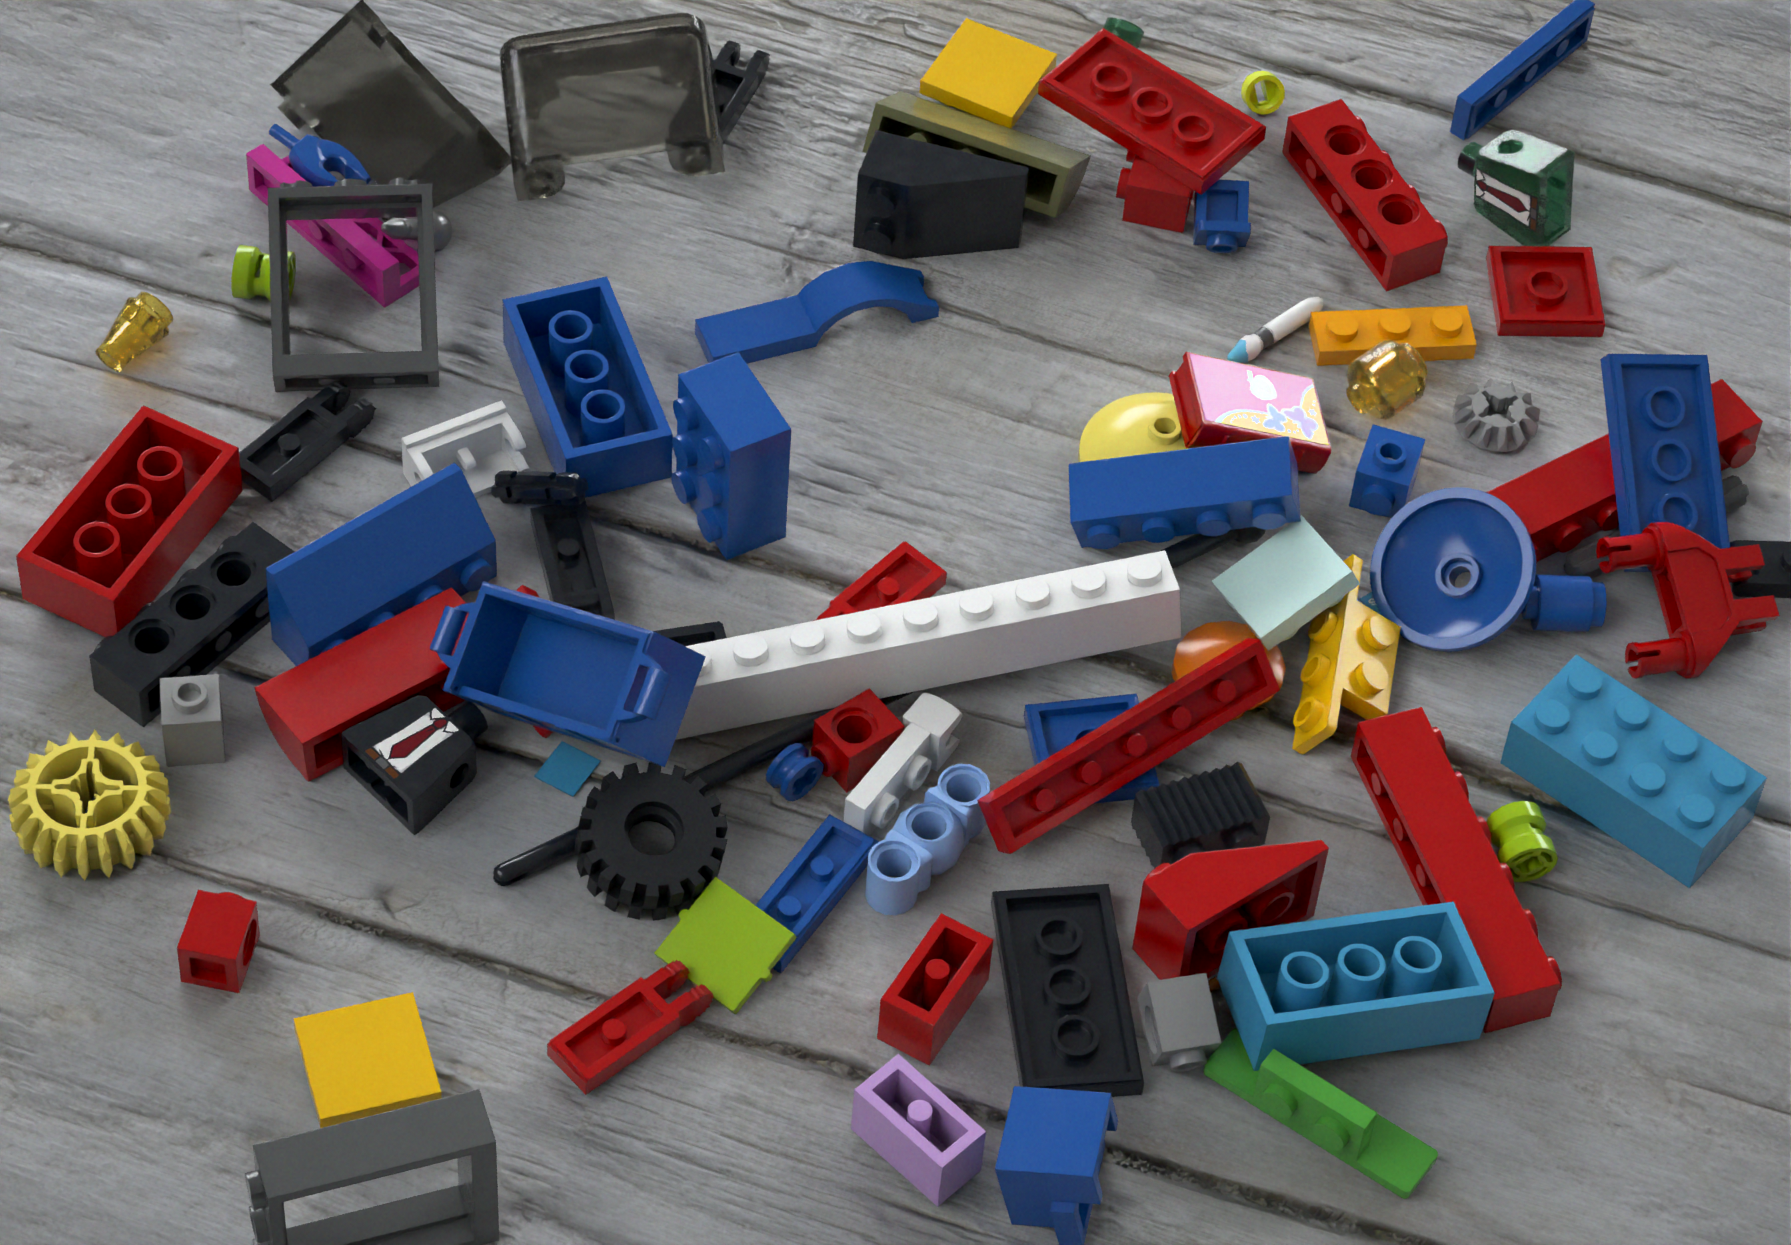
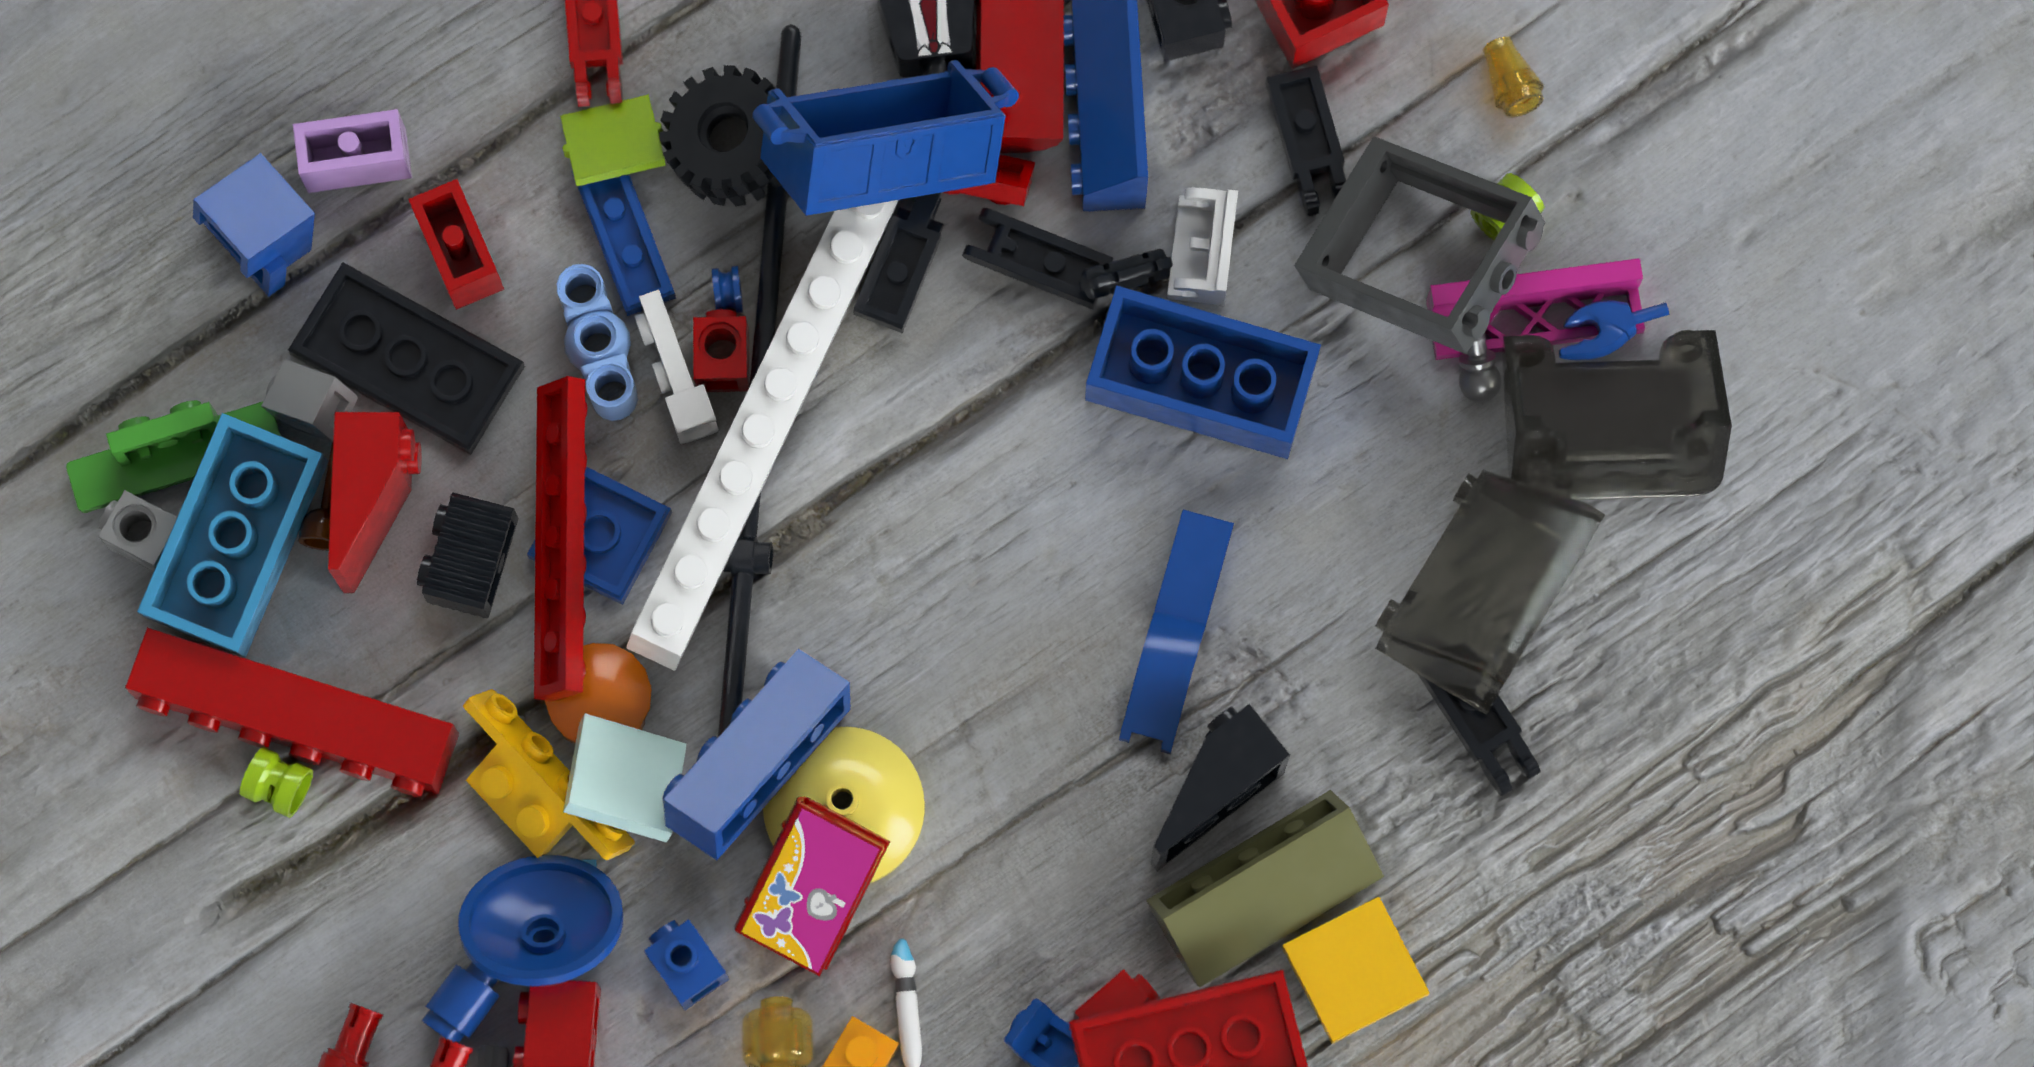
camera: 130 degrees right, 25 degrees up
(731, 456) = (1027, 407): blue brick -> none
(895, 579) = (845, 468): red hinge -> none
(1417, 1062) = (119, 518): none -> light grey brick
(1632, 770) = (270, 918): dark azure brick -> none

